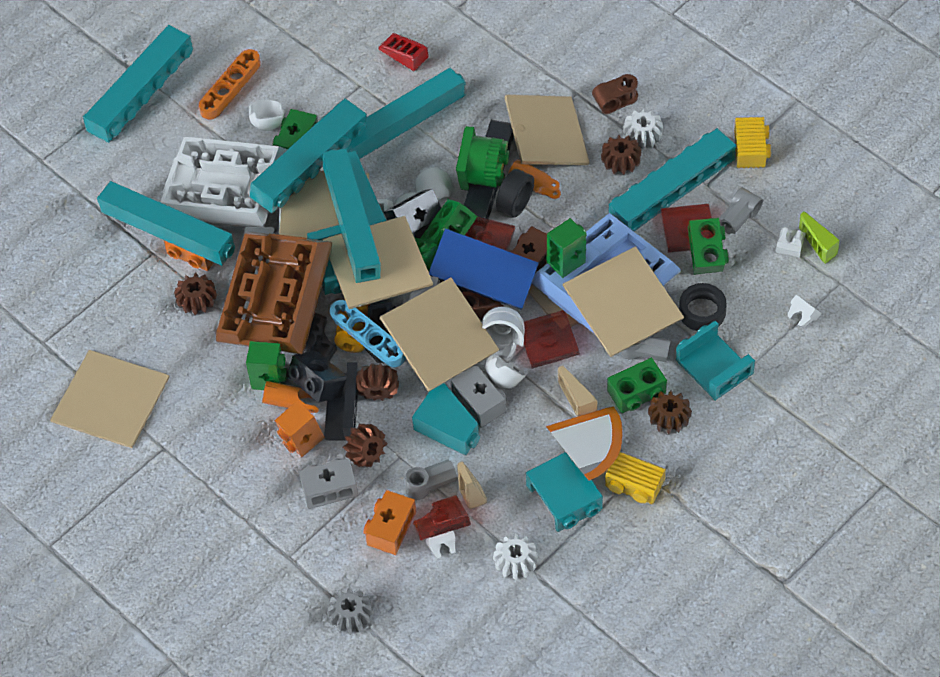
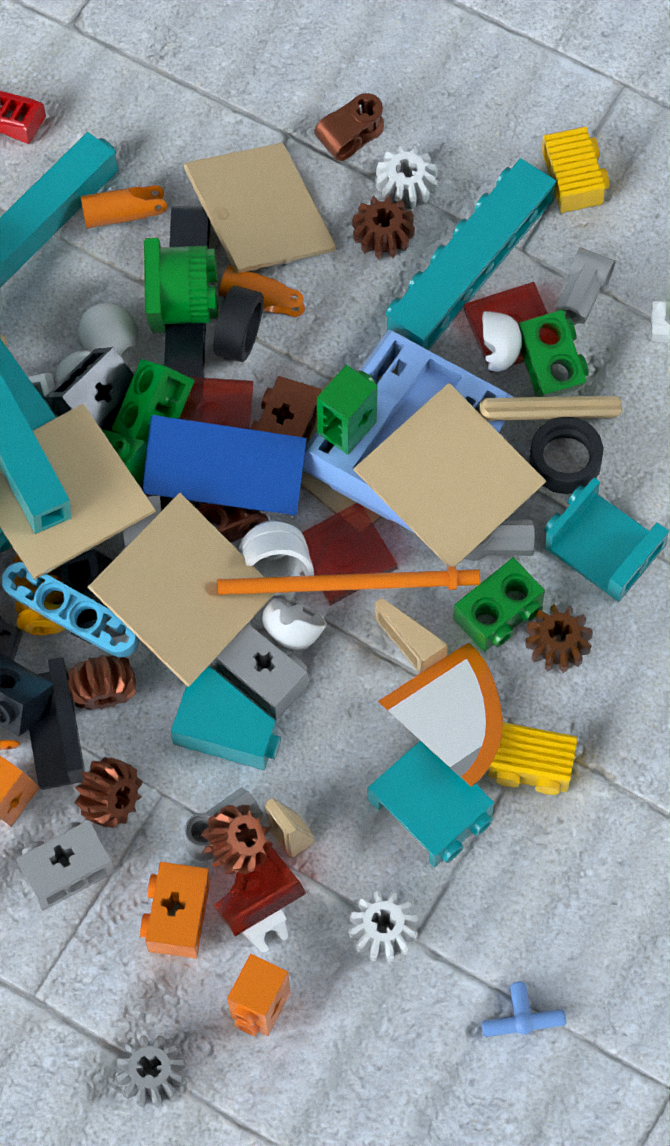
camera: 15 degrees left, 10 degrees up
(426, 578) = (258, 996): none -> orange brick
(436, 484) = (236, 855): none -> copper gear
(461, 114) = (122, 205): none -> orange piece
(590, 629) = (523, 1020): none -> medium blue piece
(608, 361) = (449, 578): none -> orange bar
(679, 230) = (502, 338): none -> white hair
(698, 275) = (550, 407): none -> tan axle

